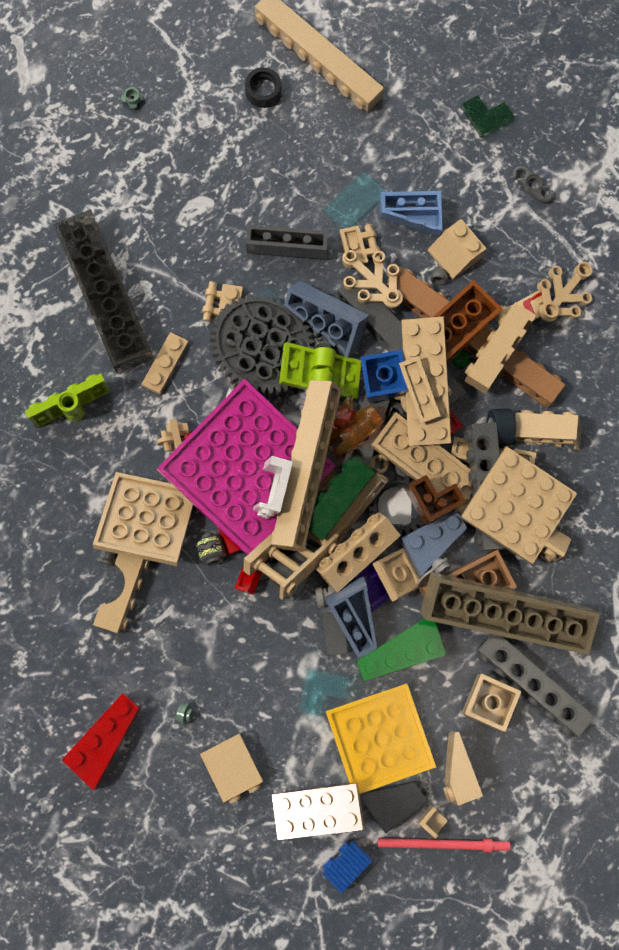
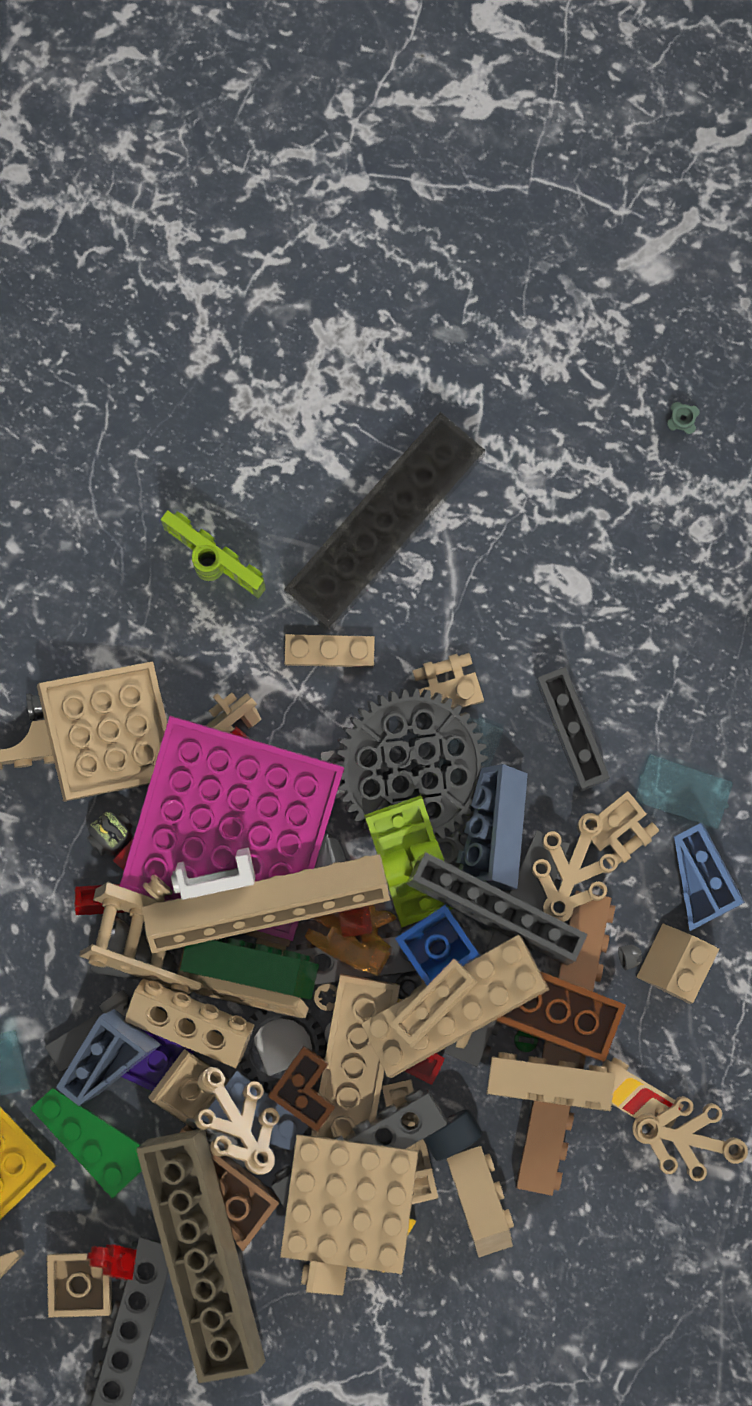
camera: 70 degrees right, 5 degrees up
(263, 530) = (157, 888): none -> tan bush
(376, 329) = (496, 908): none -> dark grey brick
(437, 548) = (238, 1124): none -> tan plant
(488, 671) = (115, 1260): none -> red plate

